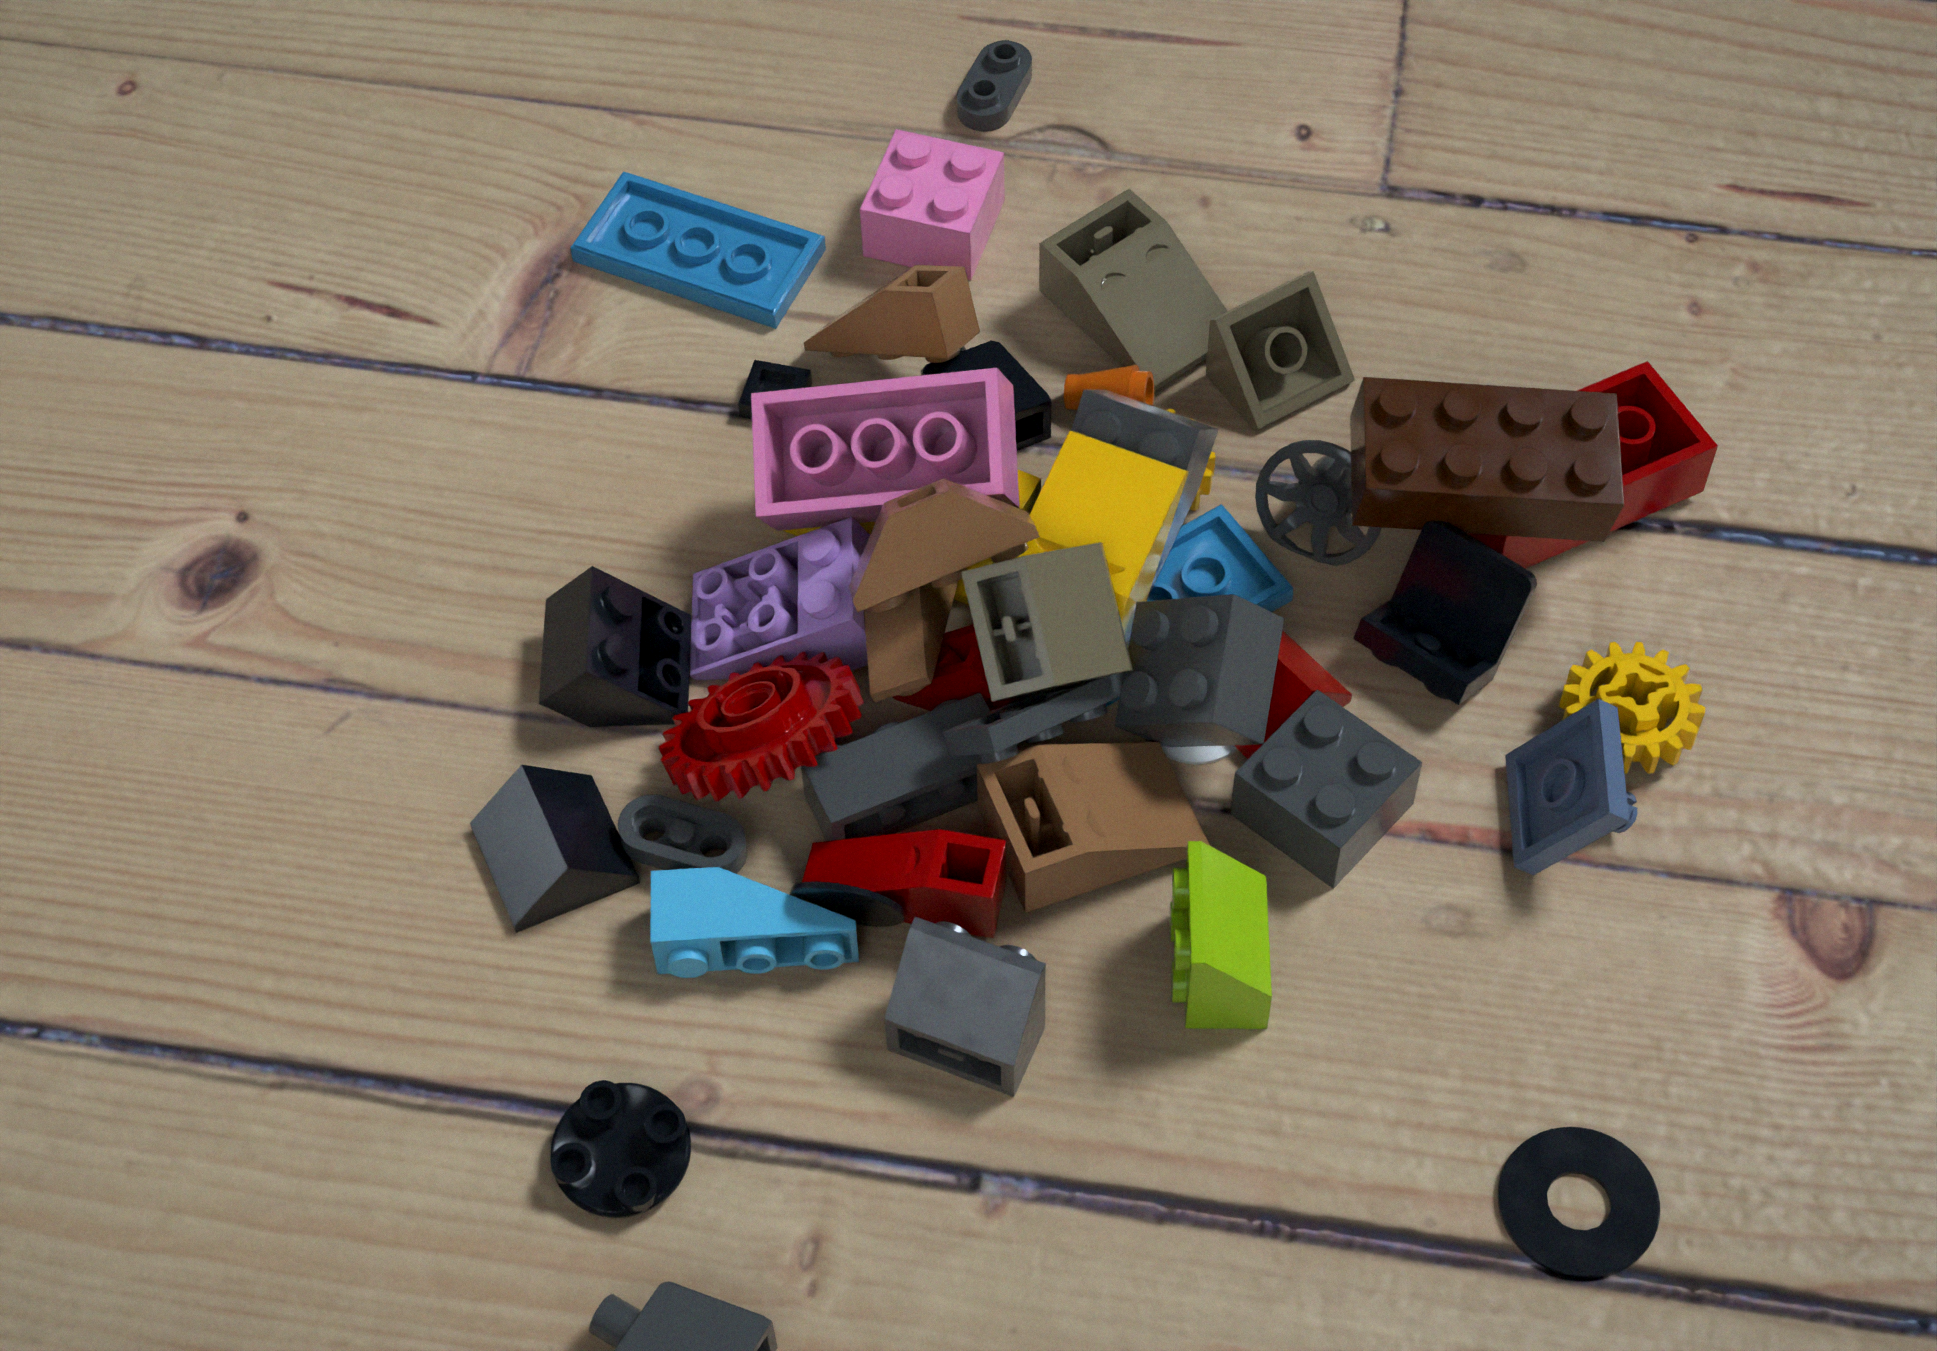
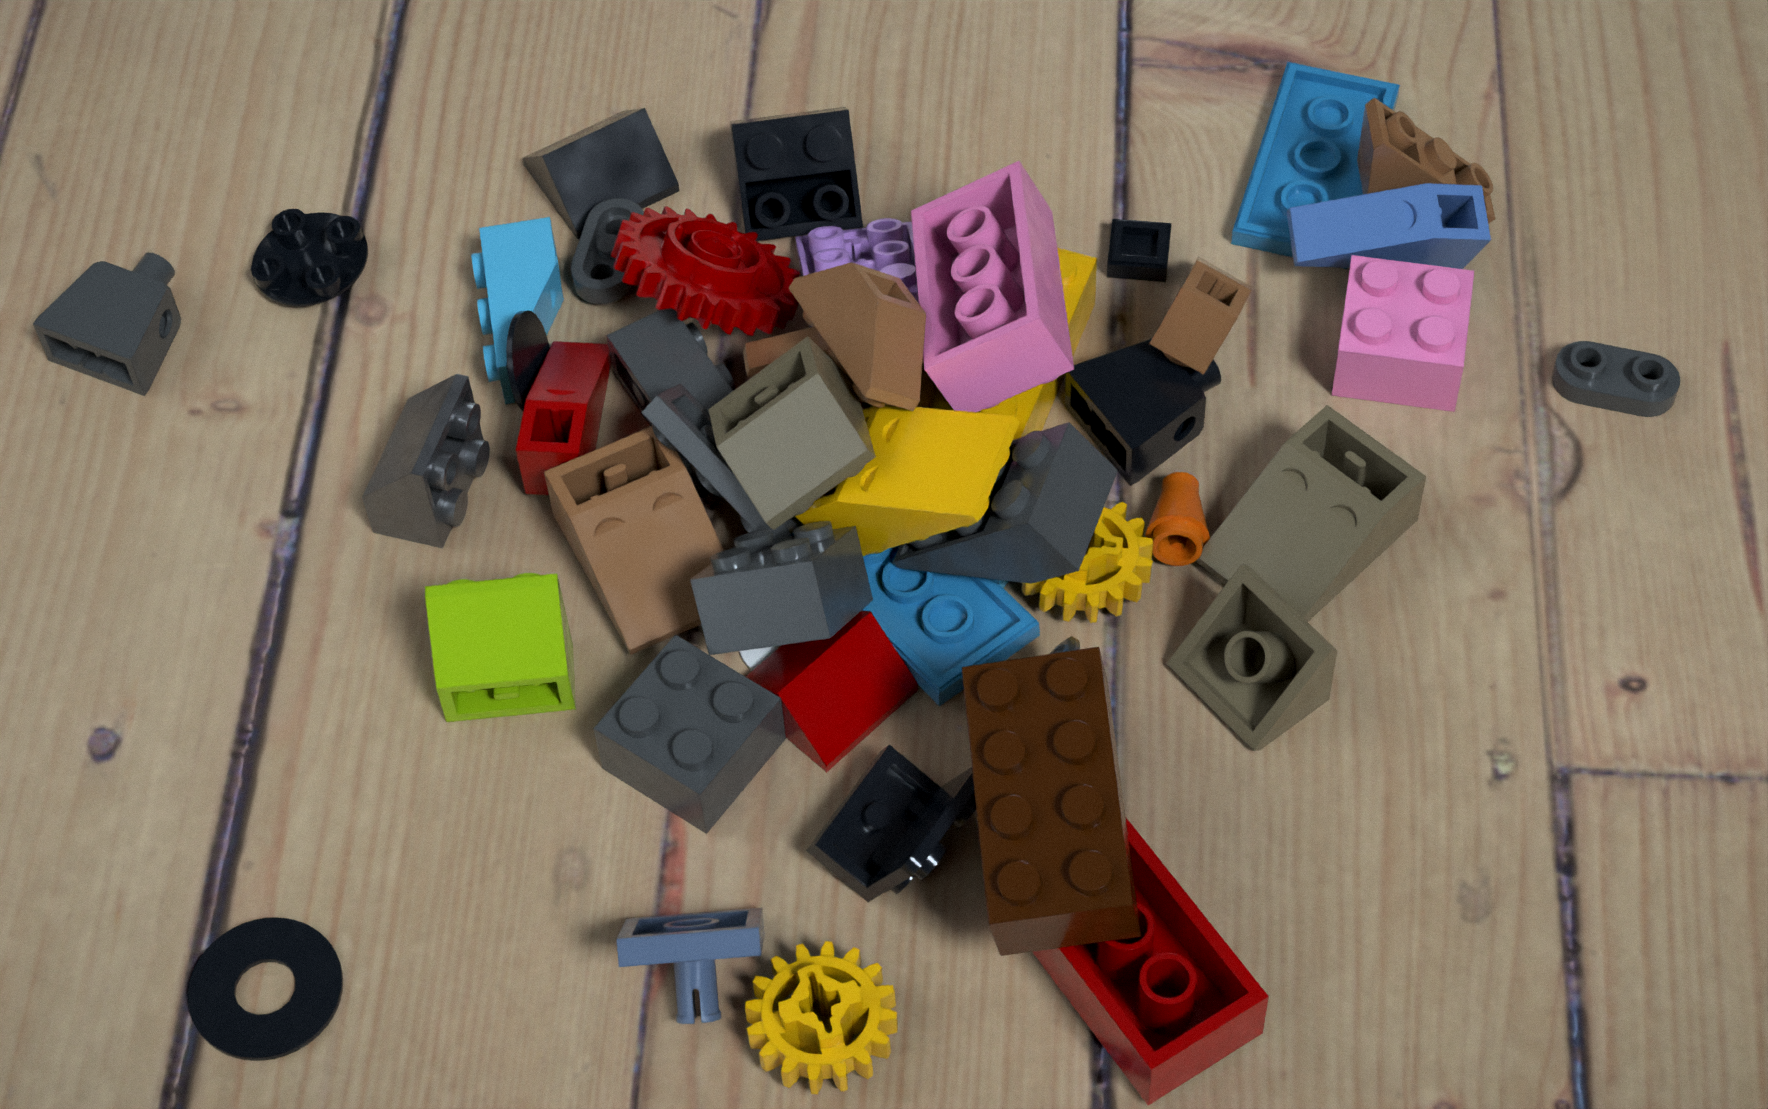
camera: 85 degrees right, 0 degrees up
(756, 164) = (1401, 155): none -> medium nougat slope
(823, 184) = (1406, 224): none -> medium blue slope

